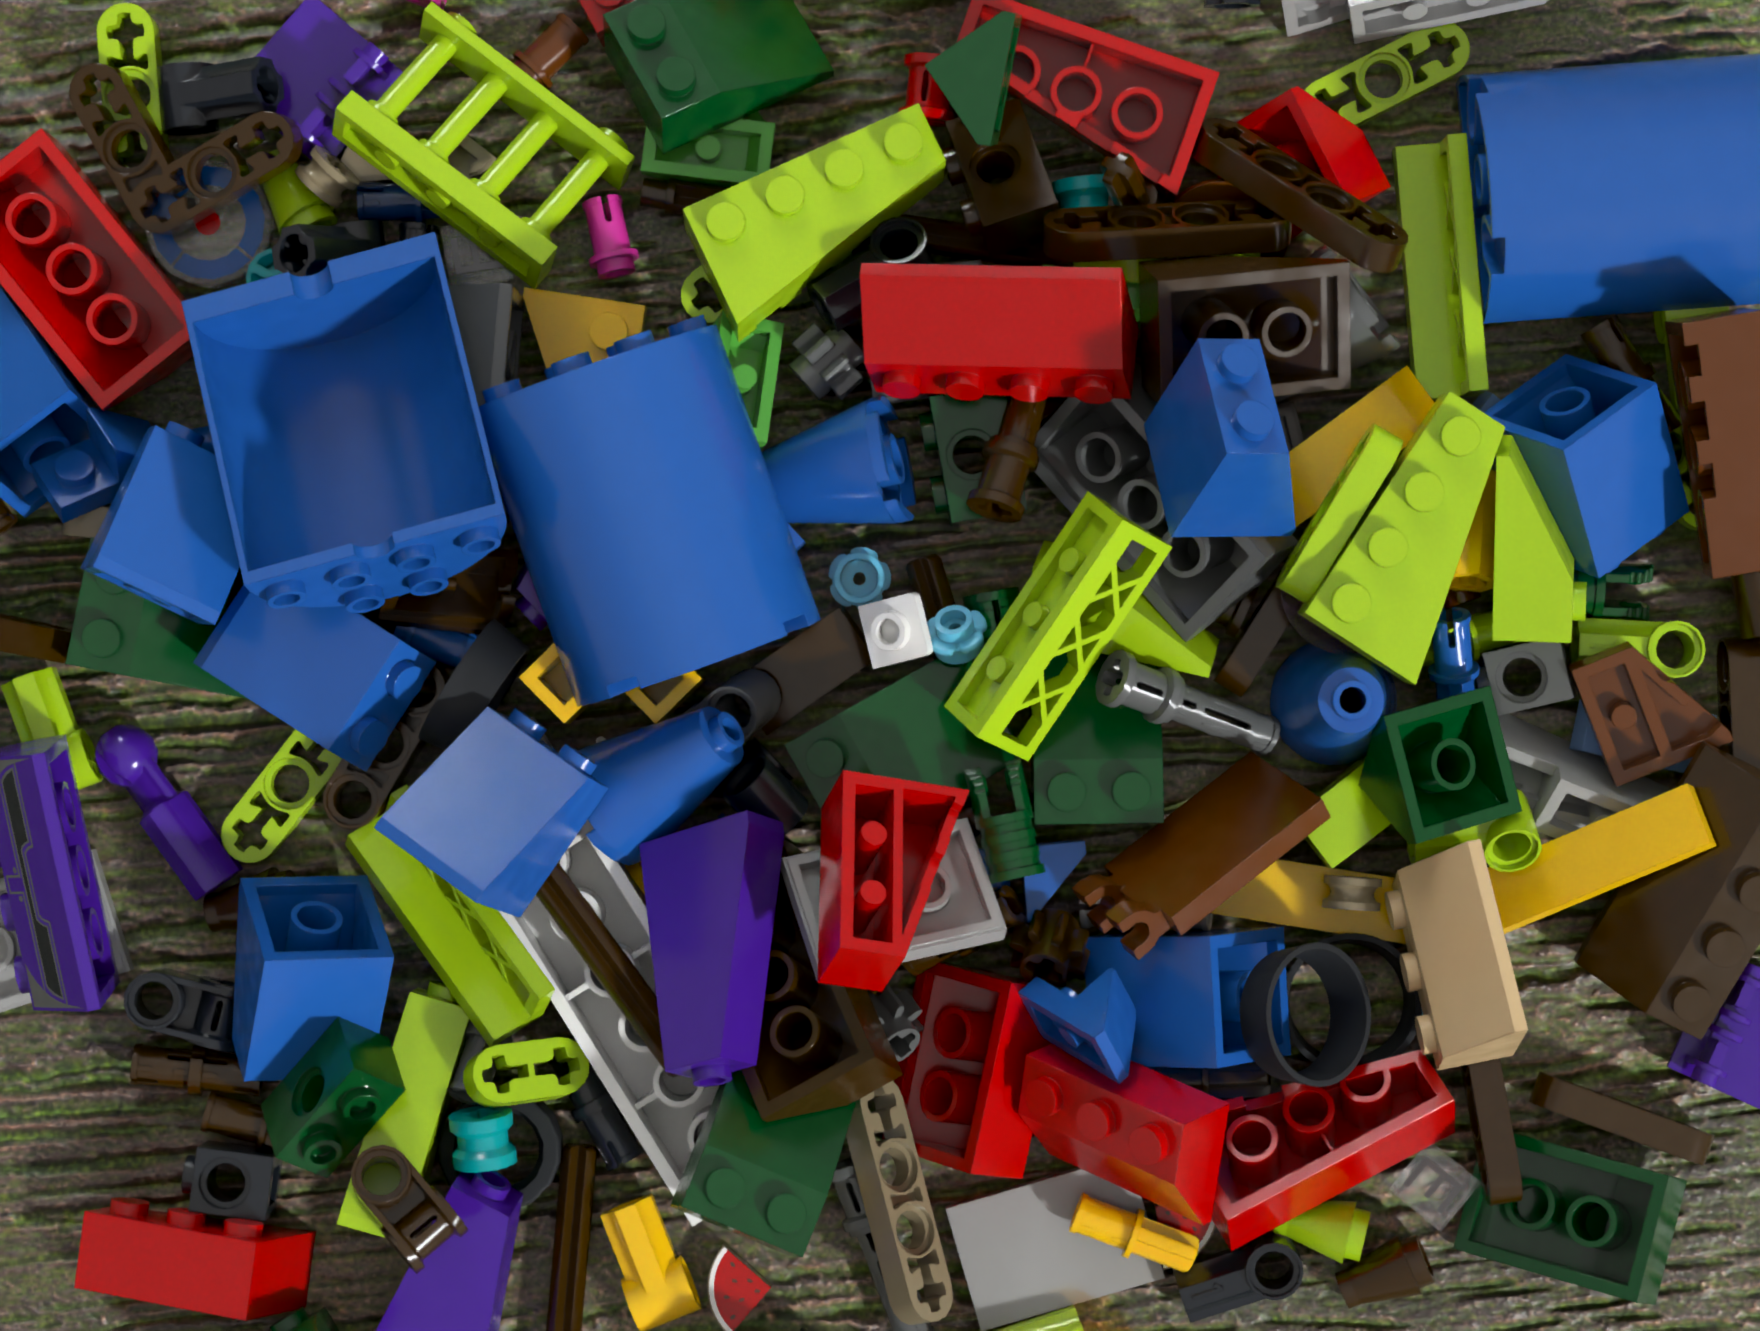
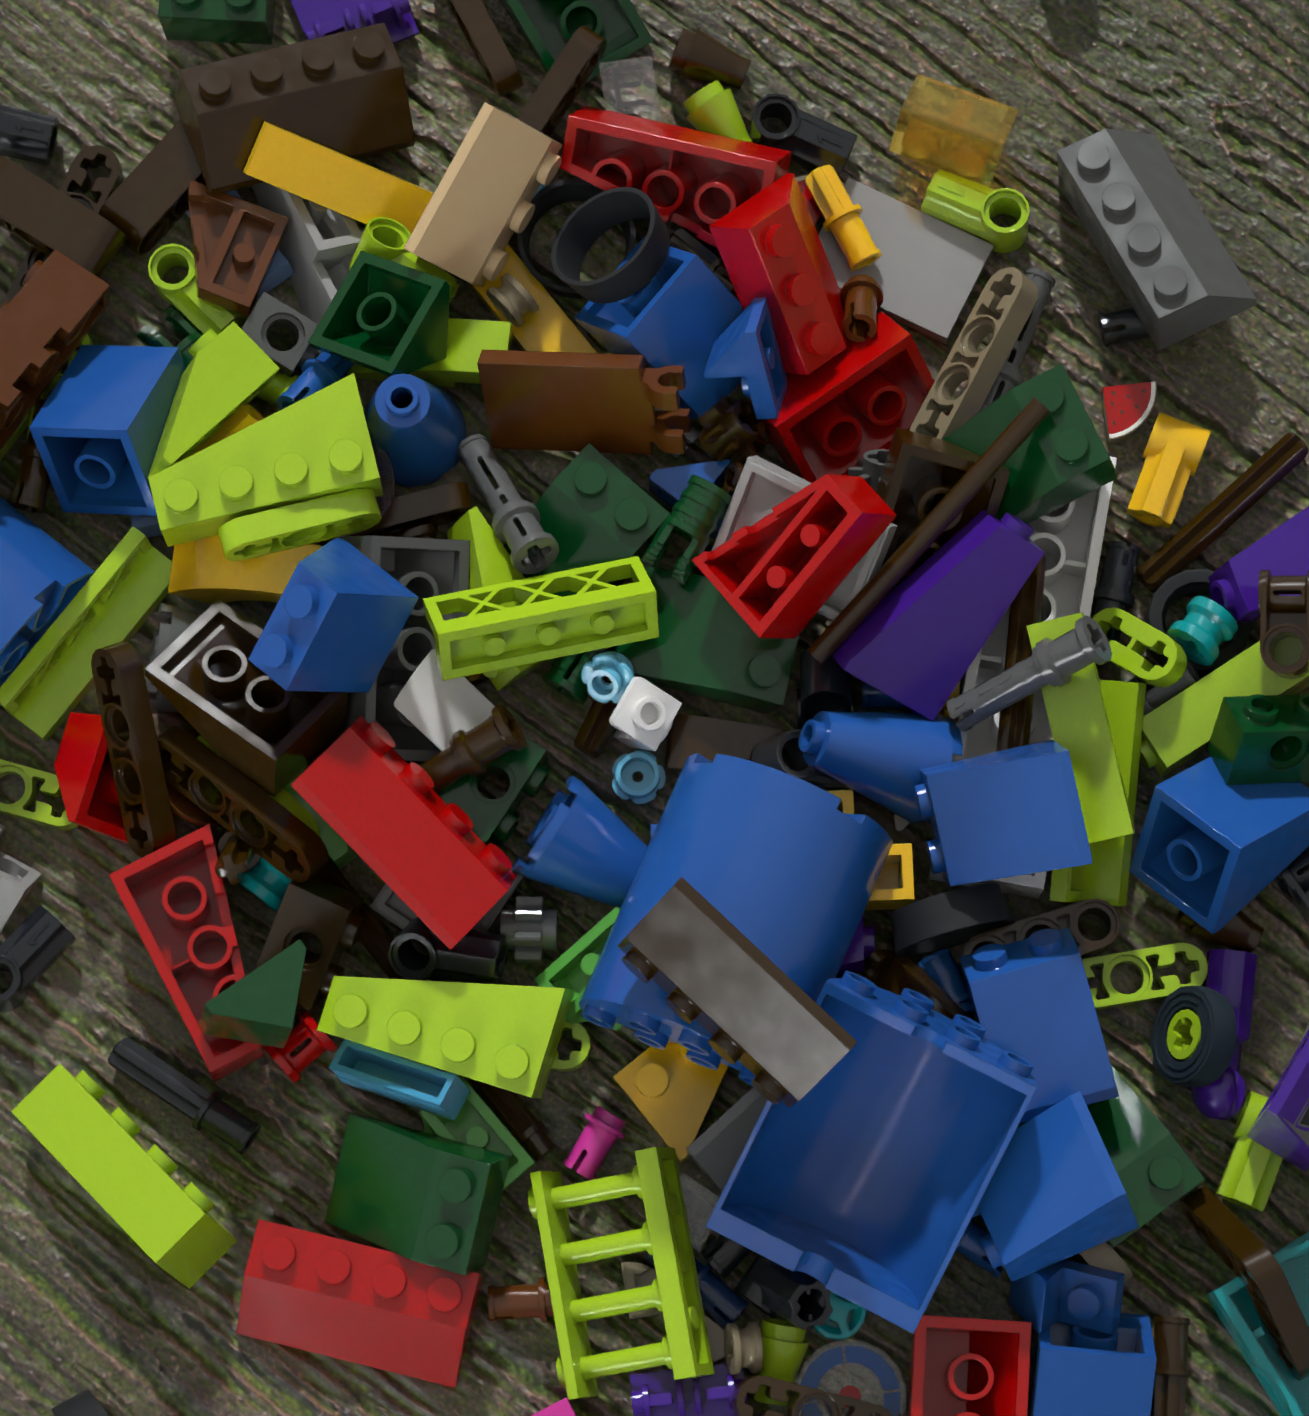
camera: 135 degrees left, 10 degrees down
(184, 780) = (1194, 1036): none -> black bush
(506, 953) = (1082, 726): none -> lime tile
(562, 420) = (735, 995): none -> dark brown slope
(572, 975) = (1050, 664): none -> dark grey pin
(784, 1002) = (928, 531): none -> dark brown piece
(790, 139) = (399, 1079): none -> dark azure piece
(1048, 1173) = (861, 300): none -> reddish brown pin
(1066, 474) = (441, 706): none -> white sticker

